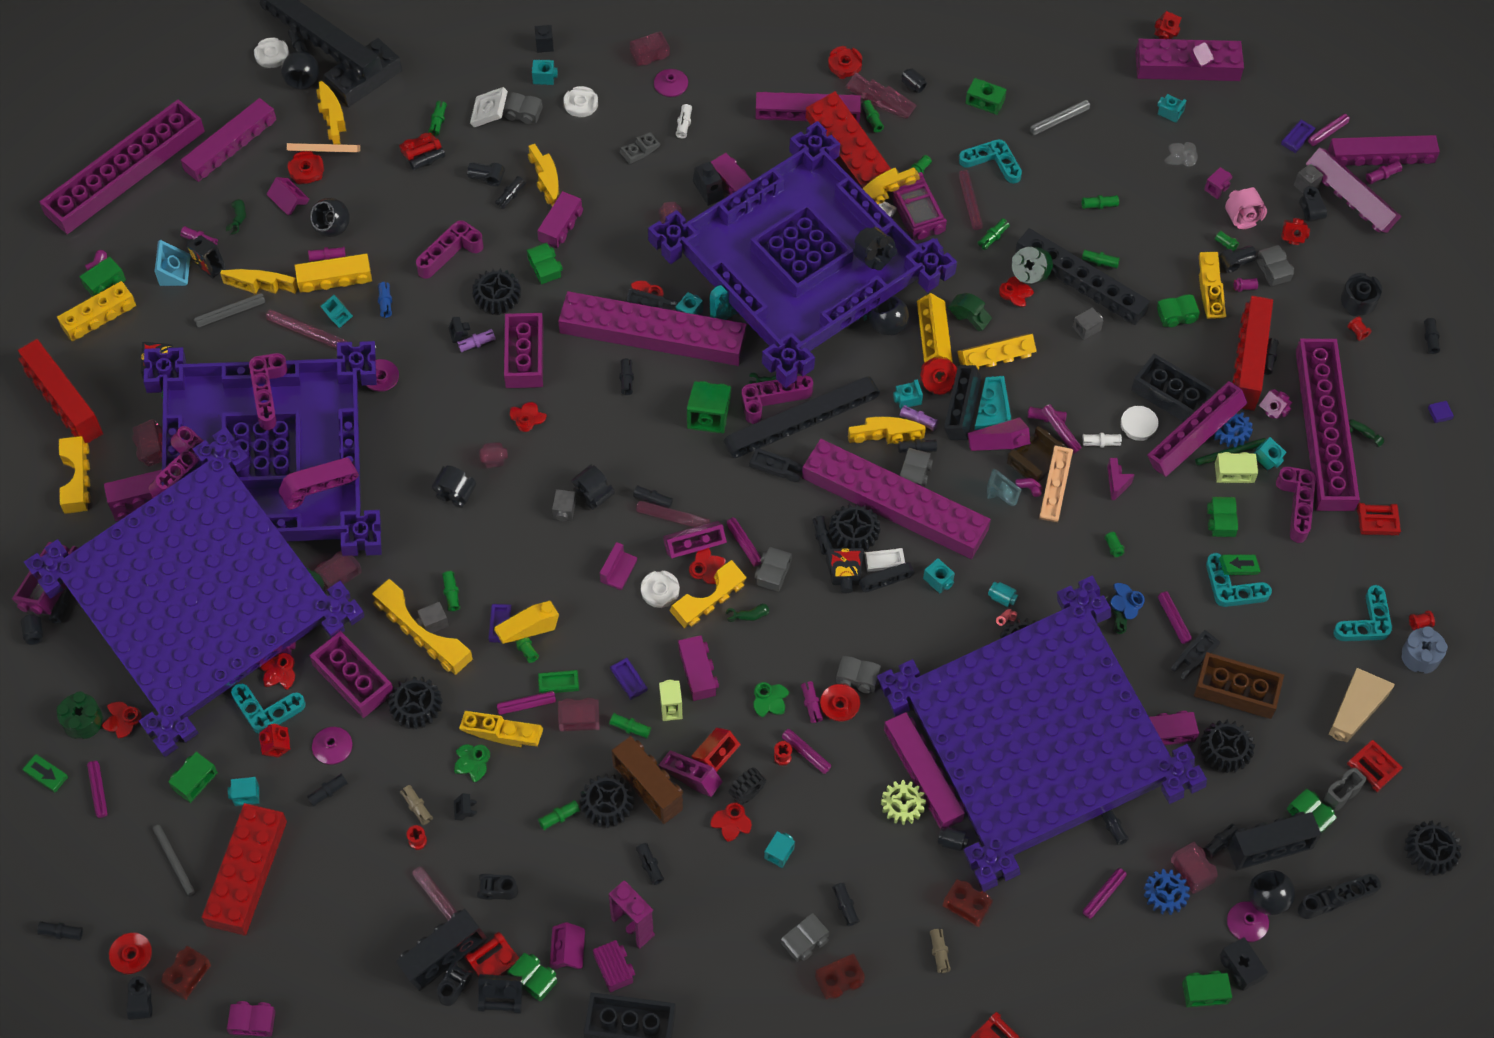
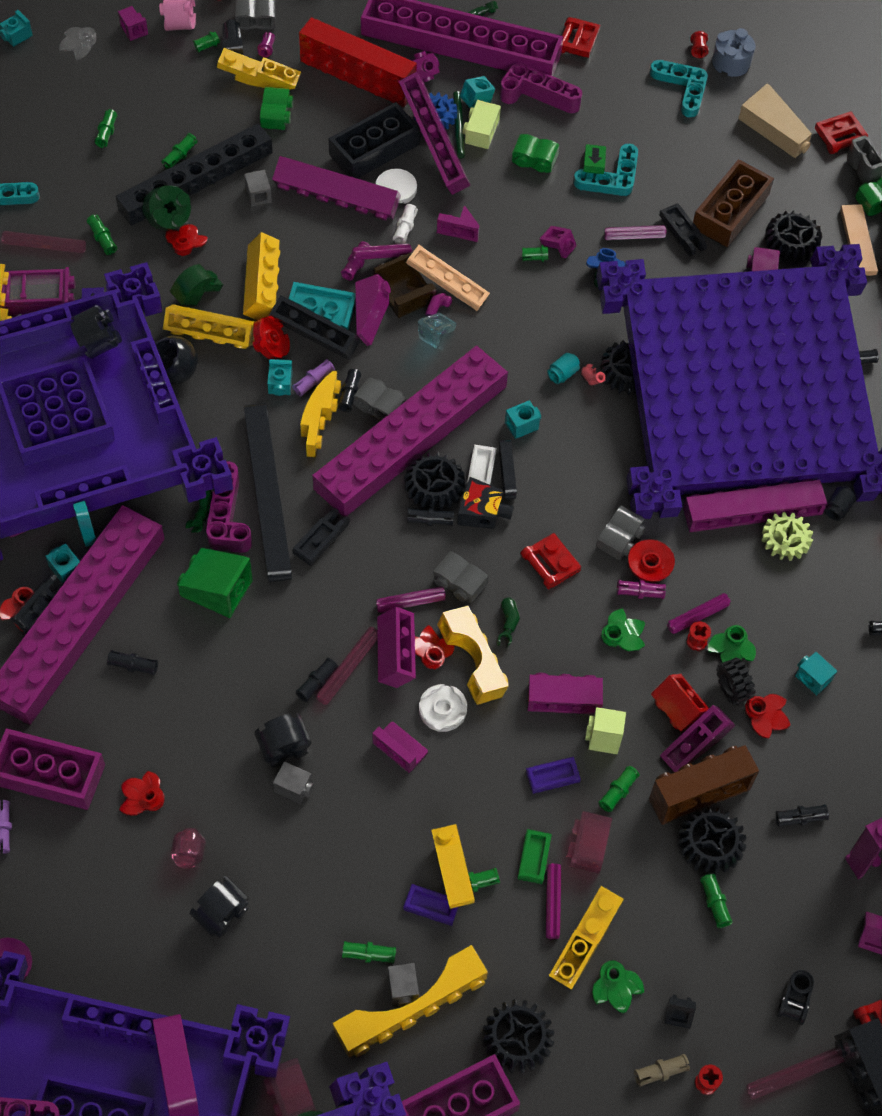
camera: 75 degrees left, 0 degrees up
(782, 783) = (731, 648): none -> green plate
(819, 636) = (556, 557): none -> red plate
(1112, 378) = (337, 188): none -> magenta brick
(1136, 559) = (560, 239): none -> magenta bracket
(1252, 805) = (857, 233): none -> light nougat tile

